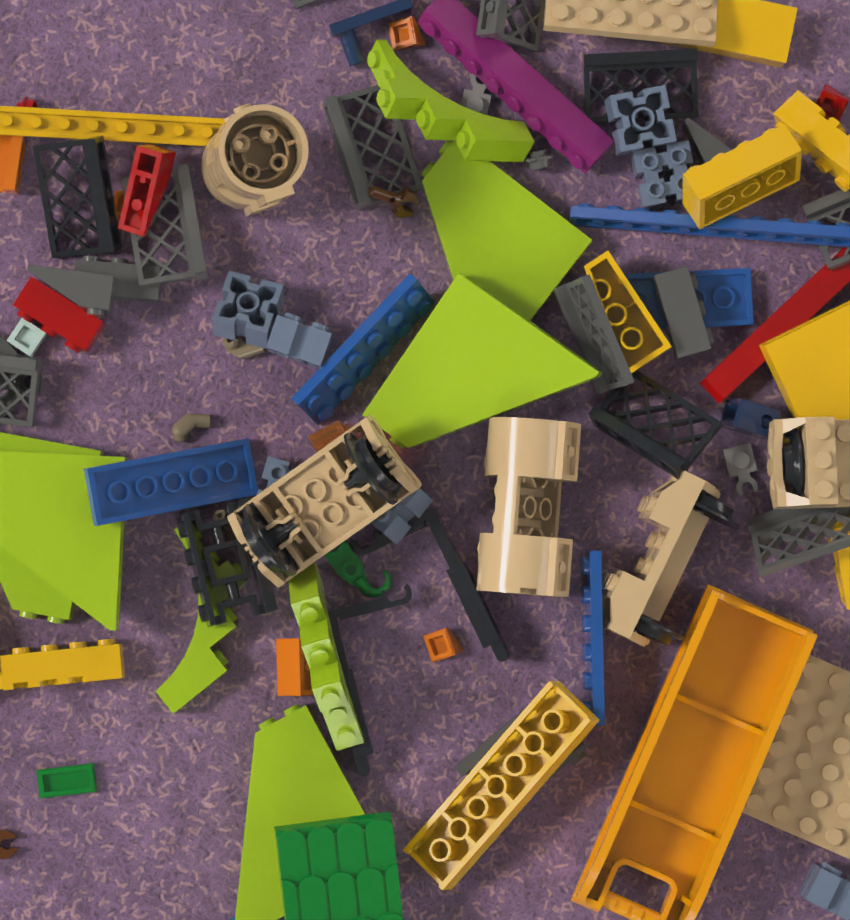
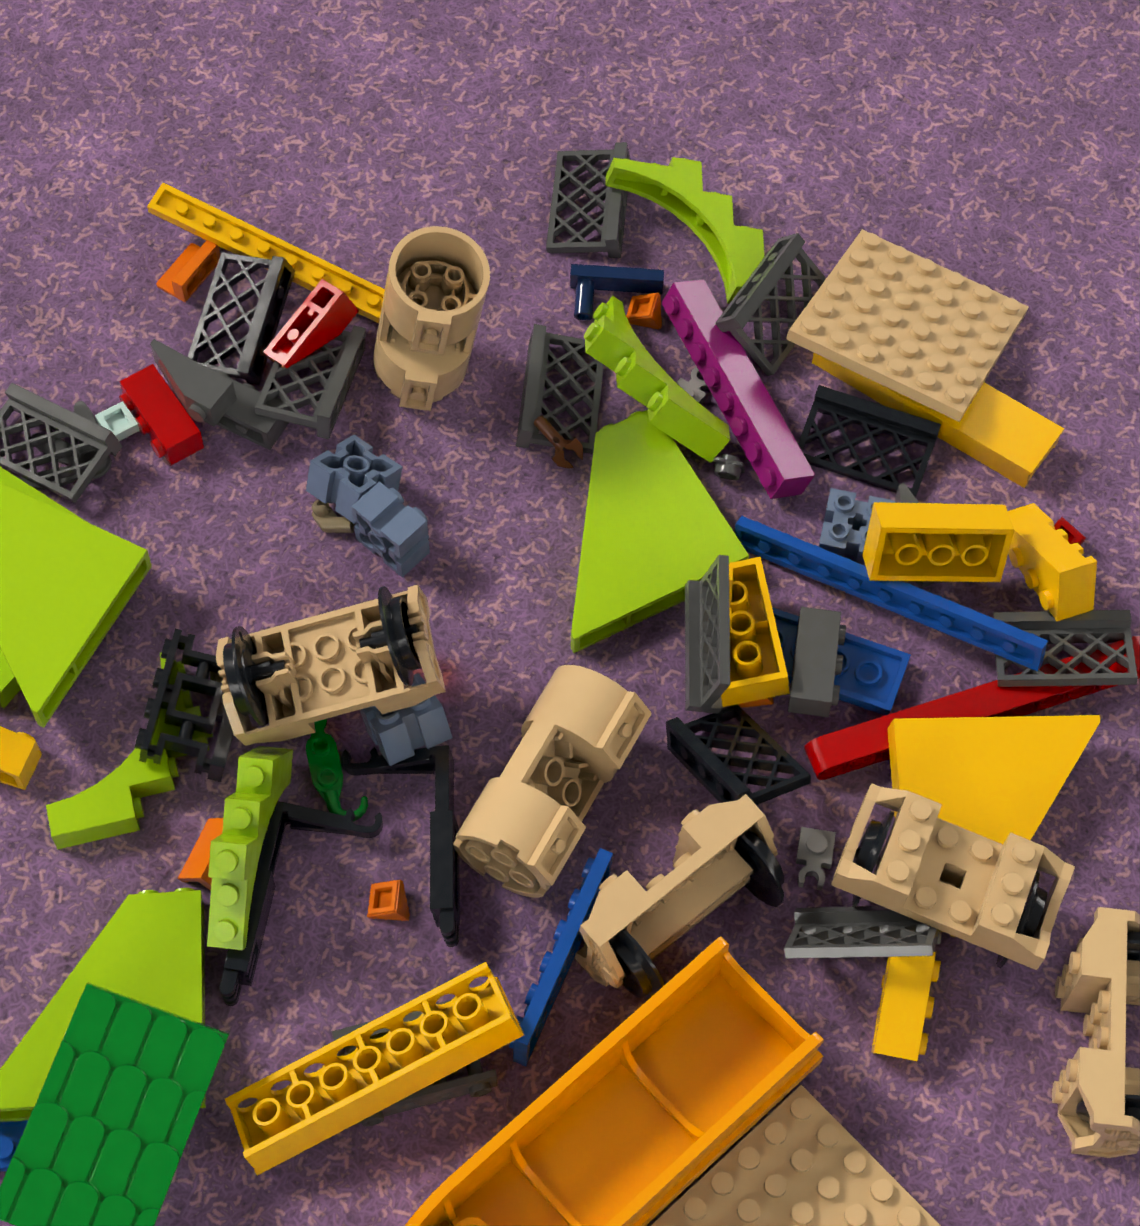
camera: 20 degrees right, 25 degrees down
(170, 481) = (173, 592): blue plate -> none
(187, 423) = (235, 566): dark tan arm -> none
(364, 350) = (461, 557): blue plate -> none
(472, 365) = (558, 609): lime slope -> none
(649, 105) = (851, 462): sand blue brick -> none
(745, 417) = (841, 799): dark blue torso -> none

